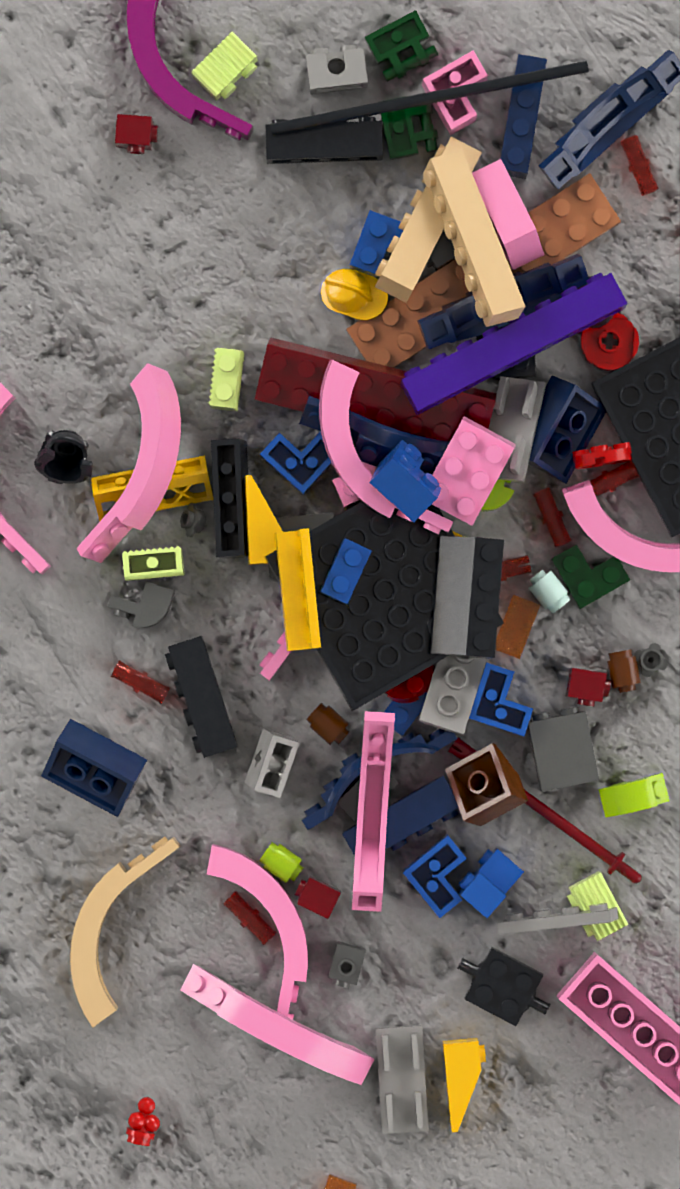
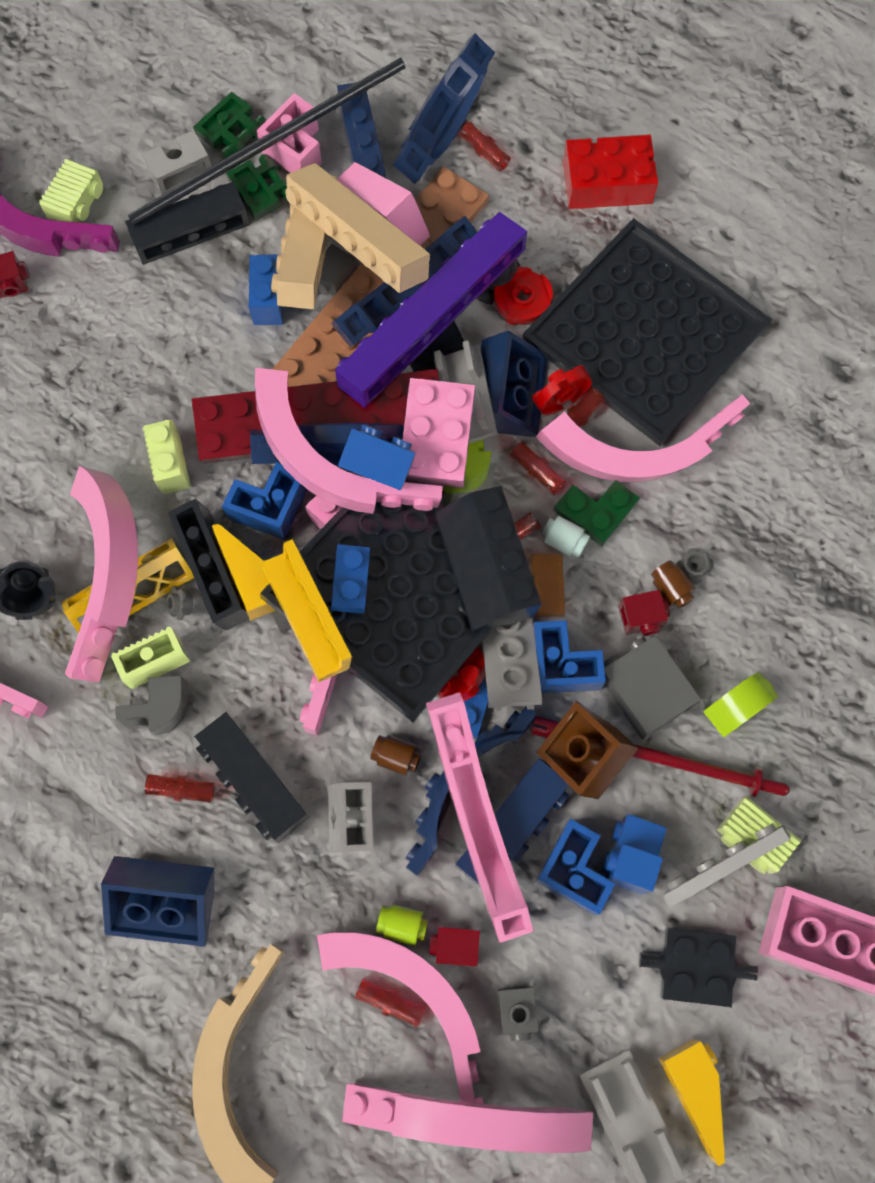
camera: 20 degrees left, 15 degrees down
(353, 294) = (263, 339): yellow piece -> none

